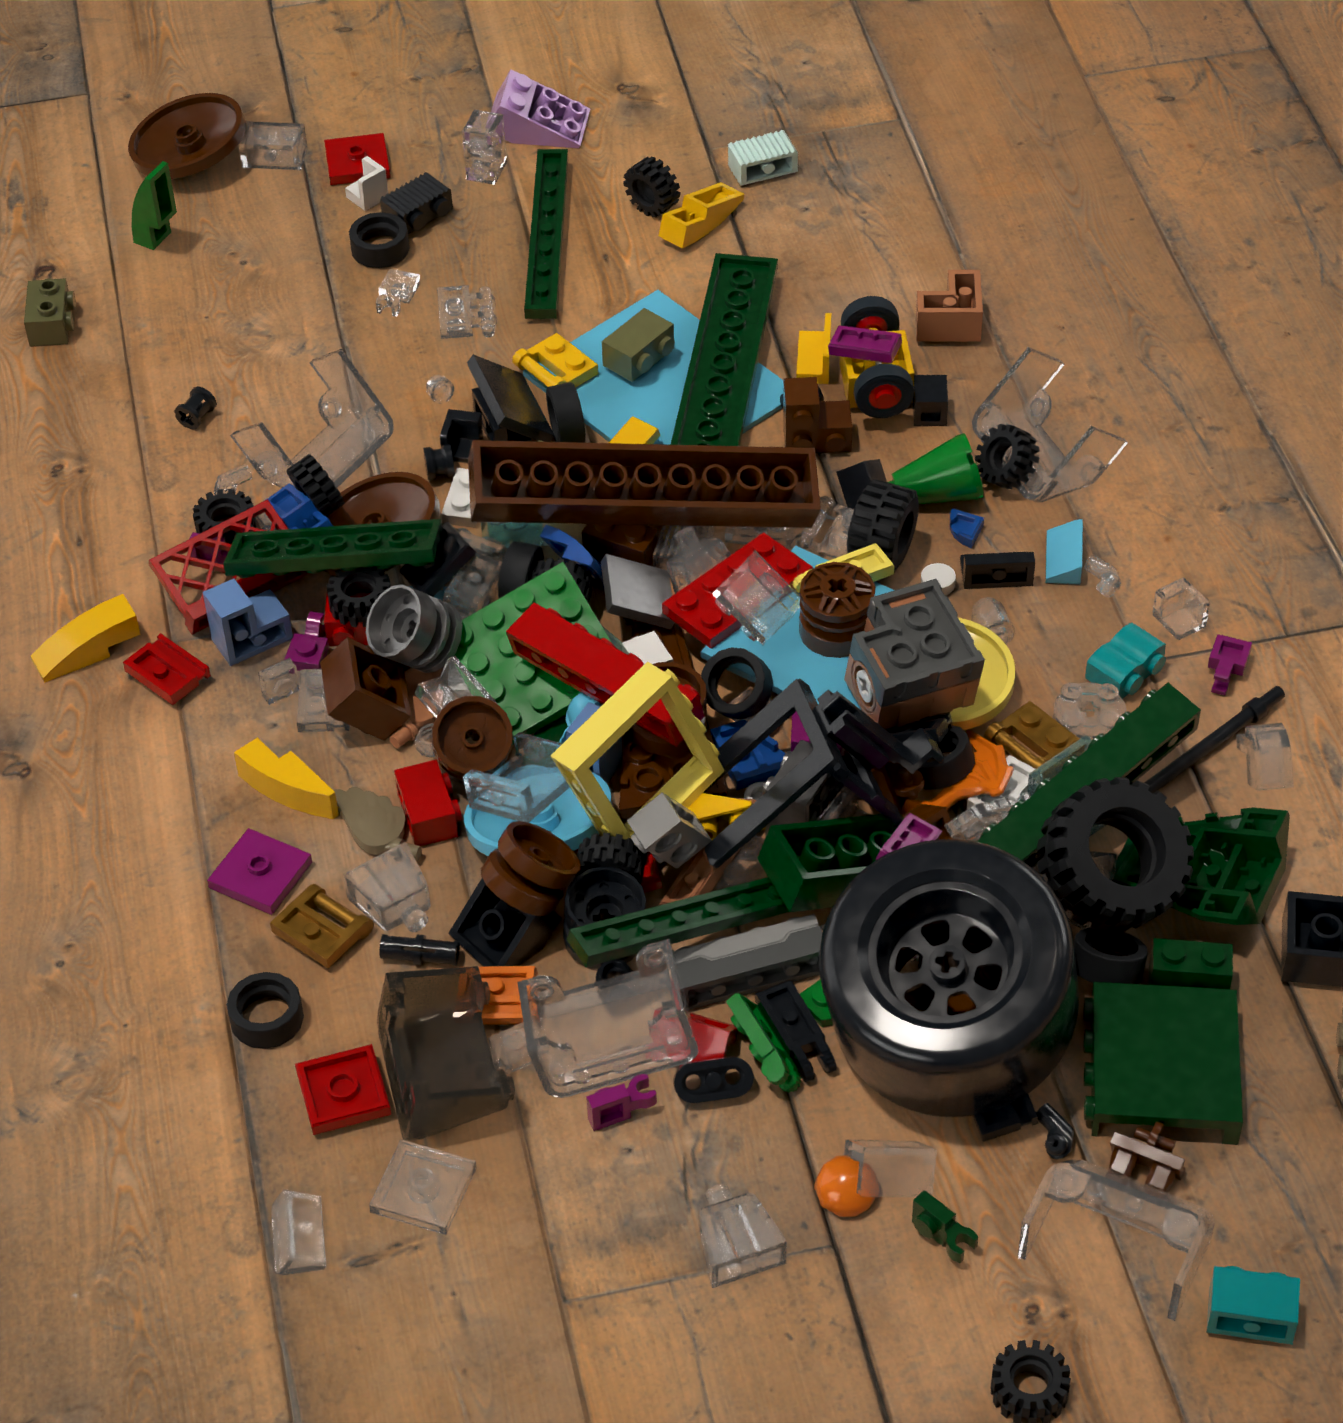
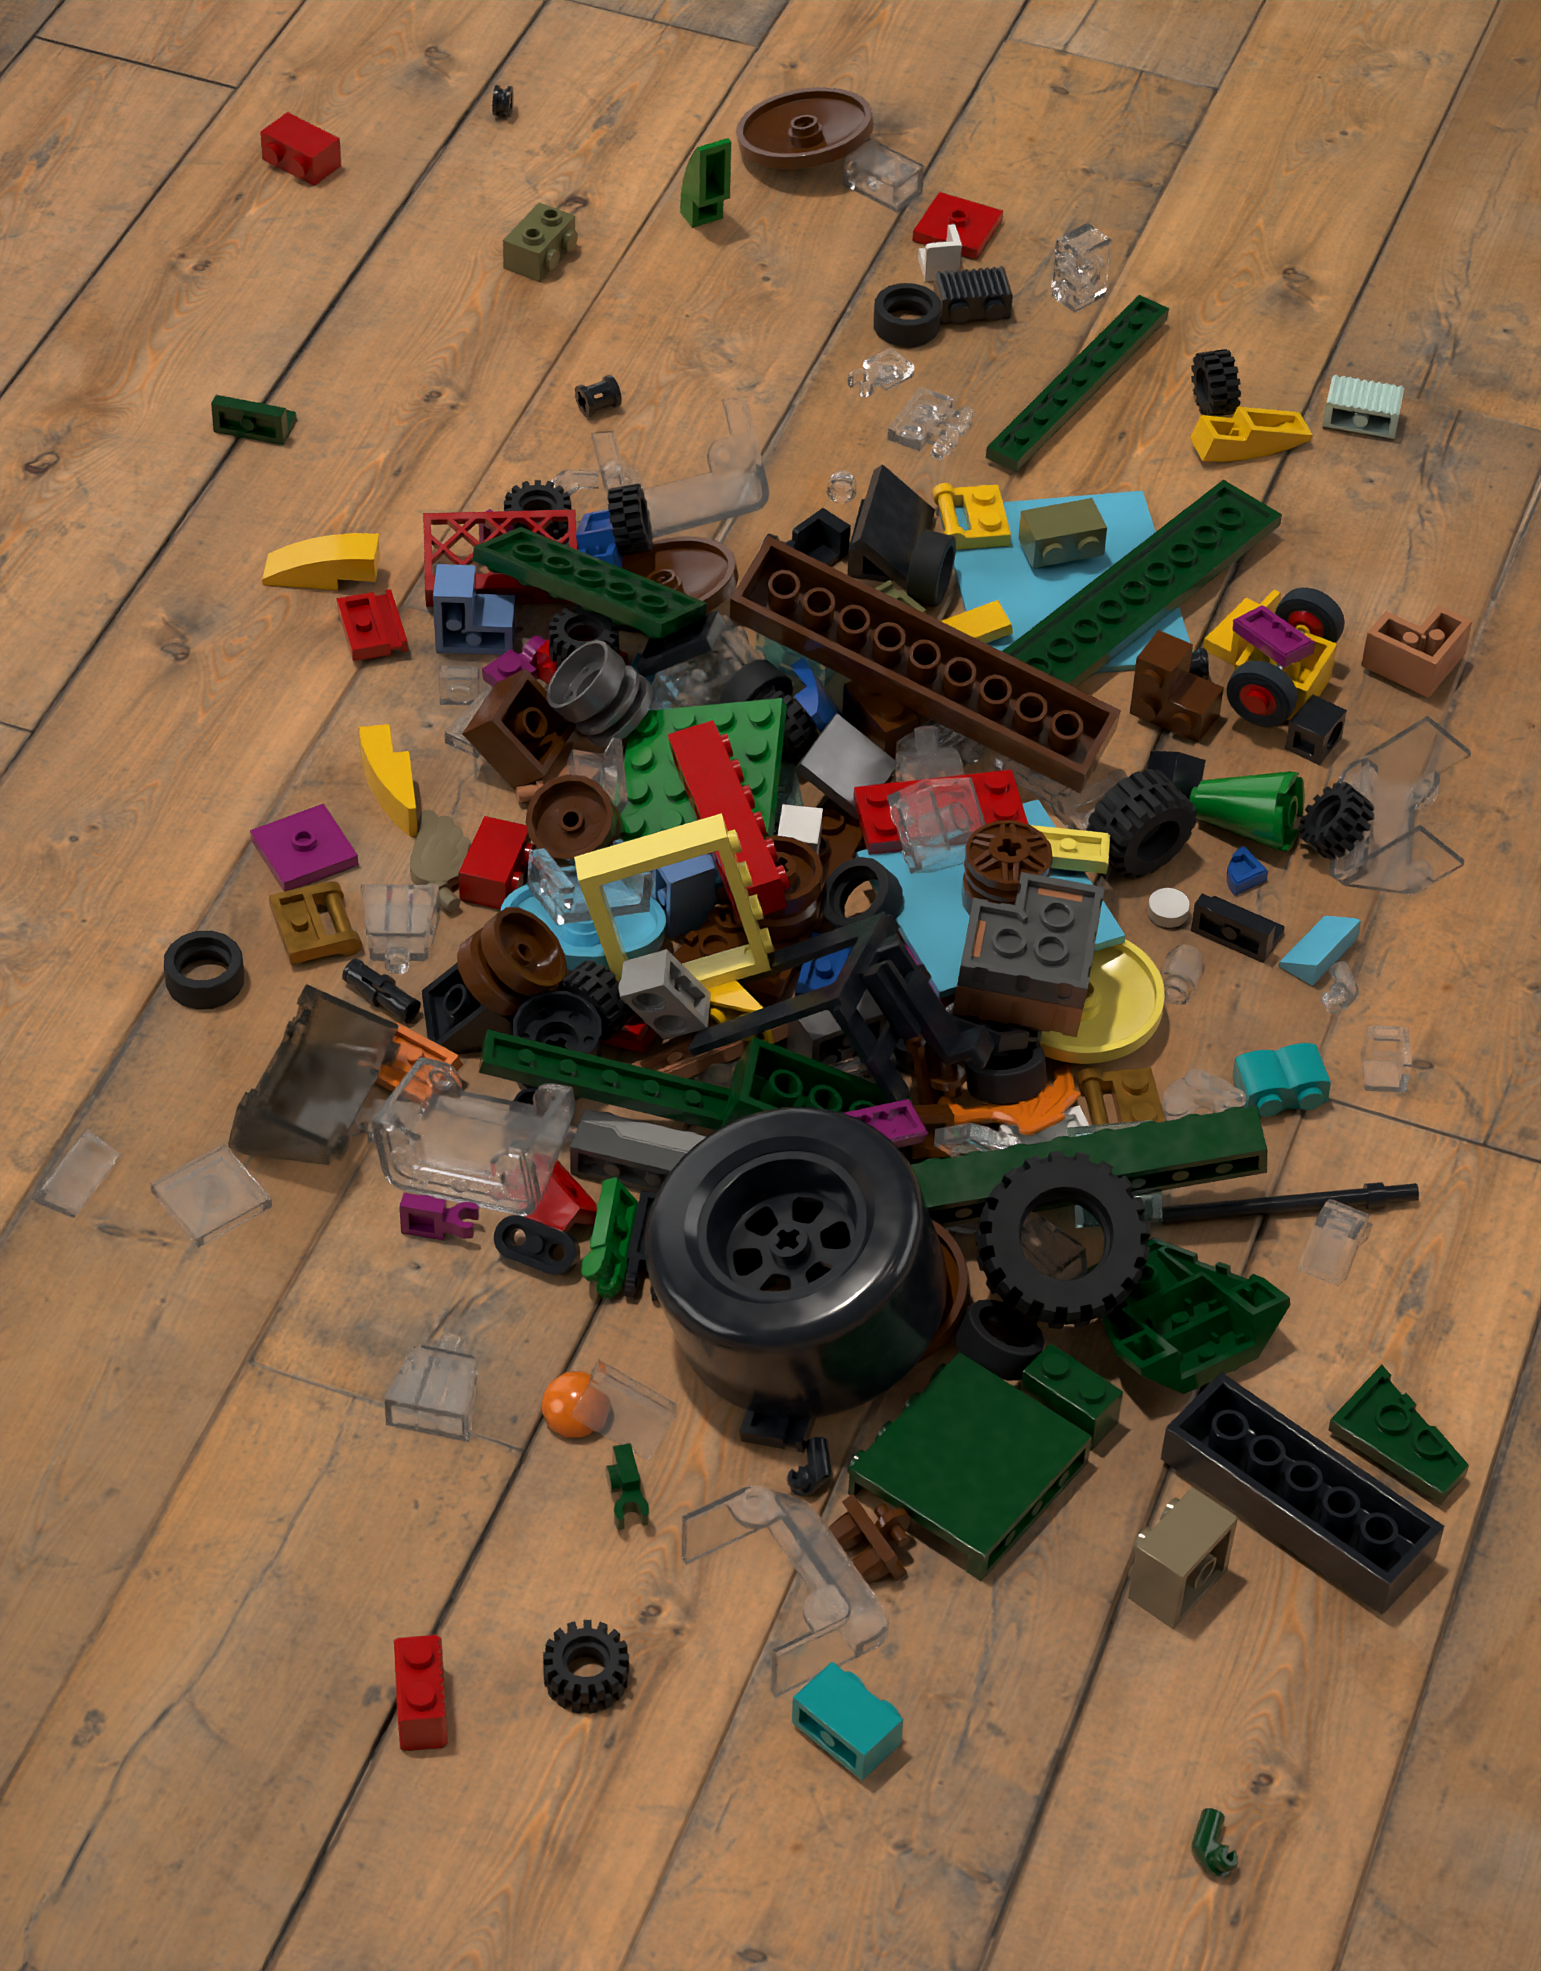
camera: 30 degrees right, 0 degrees up
(342, 1089) = (211, 1073): red plate -> none
(539, 113) = (1170, 259): lavender slope -> none
(1228, 658) = (1391, 1130): magenta plate -> none

